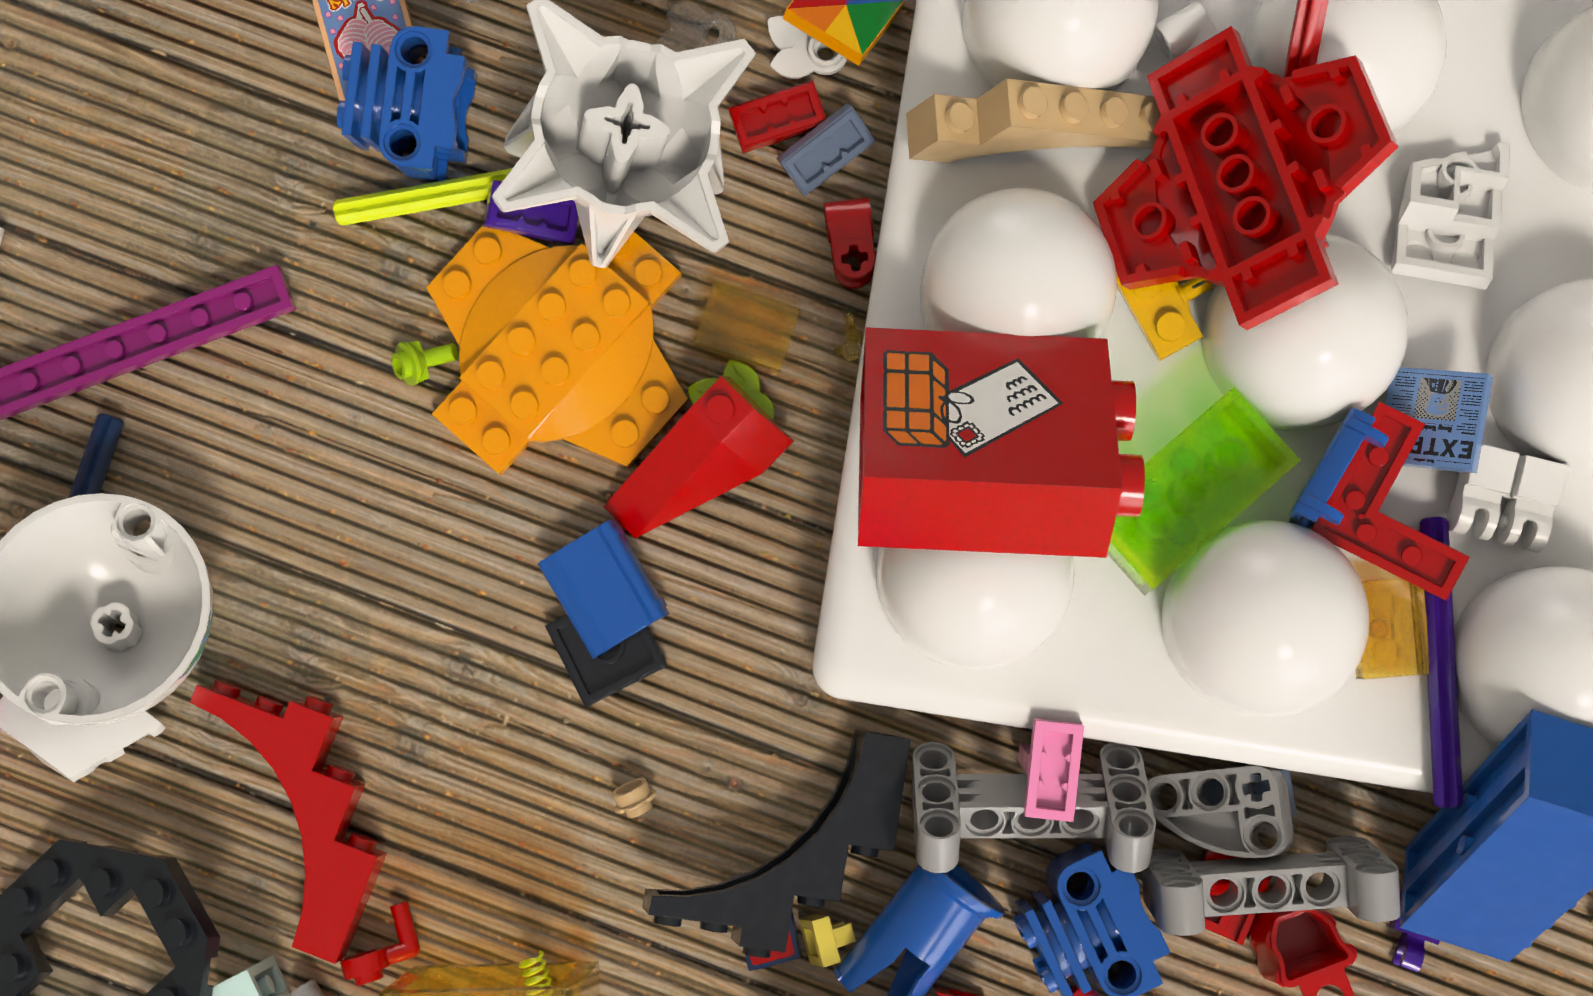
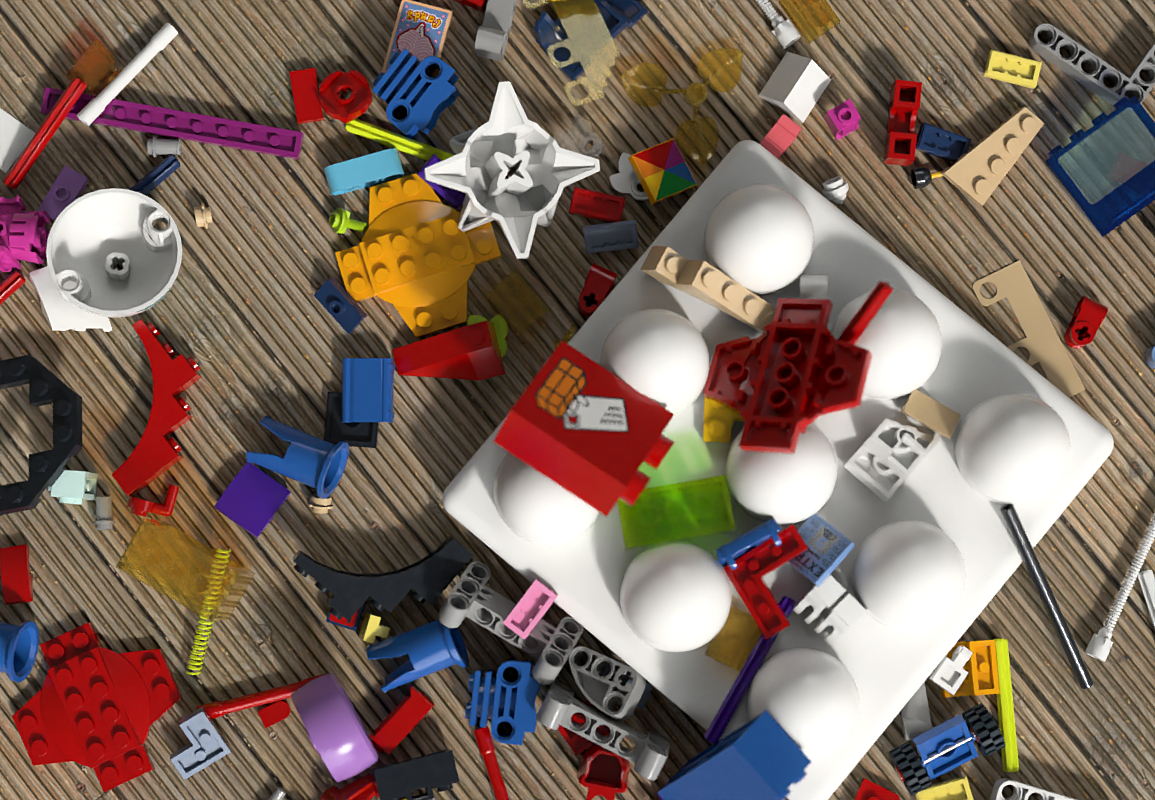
camera: 30 degrees right, 0 degrees up
(81, 408) = (164, 146): none -> light grey pin
(201, 476) = (203, 215): none -> tan plate
(251, 209) = (306, 95): none -> red tile
(324, 188) = (349, 108): none -> red plate
(403, 269) = (364, 171): none -> medium azure beam
(486, 486) = (340, 305): none -> dark blue plate
(528, 854) = (252, 499): none -> dark purple slope
(575, 746) = (306, 459): none -> blue piece
(1472, 118) = (931, 413): none -> tan slope

